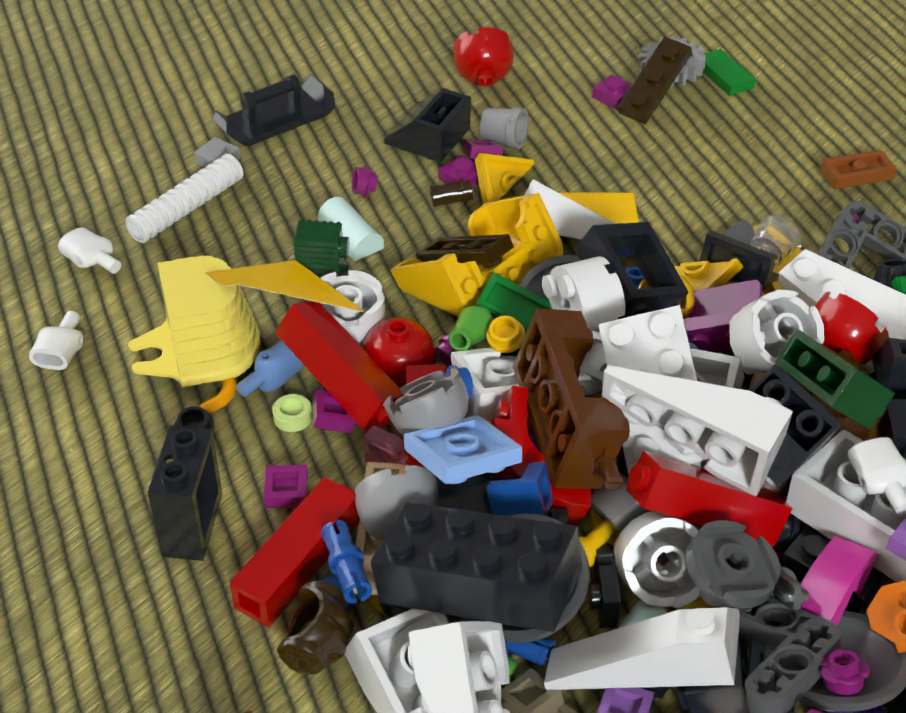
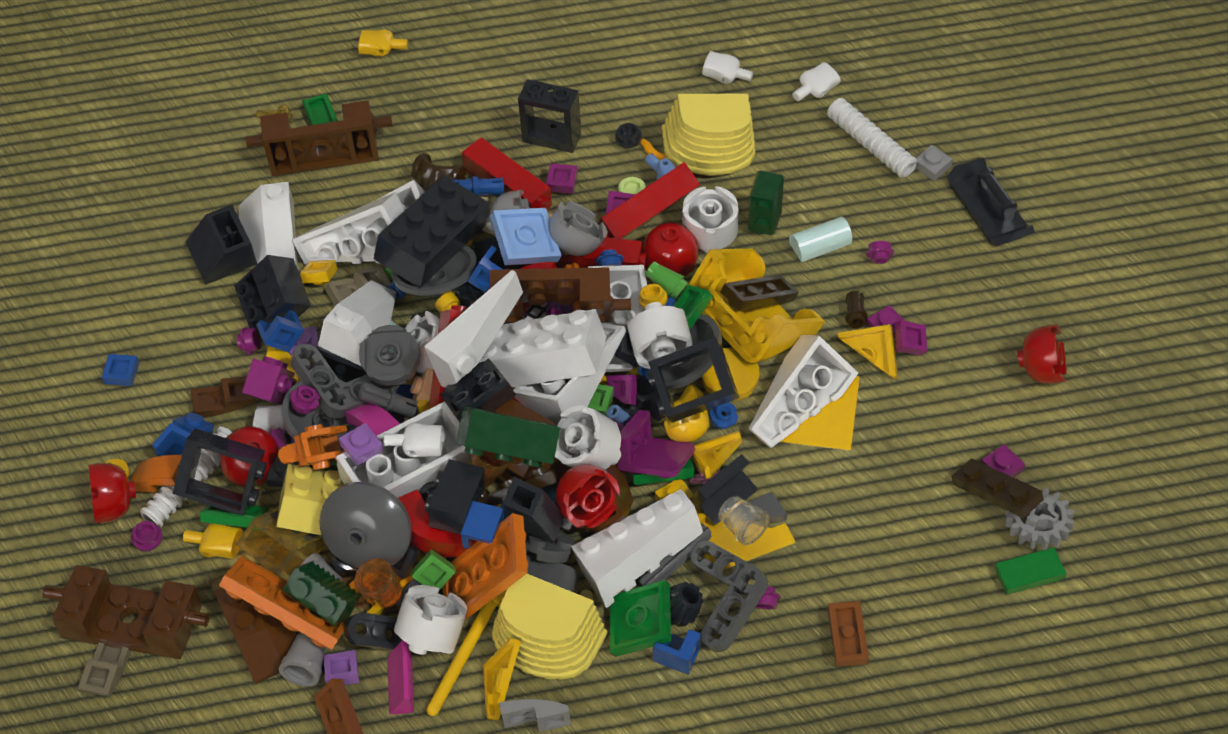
camera: 105 degrees right, 10 degrees up
(284, 278) = (719, 165): yellow sticker -> none
(433, 125) = (943, 304): black slope -> none
(505, 126) = (940, 359): light grey piece -> none

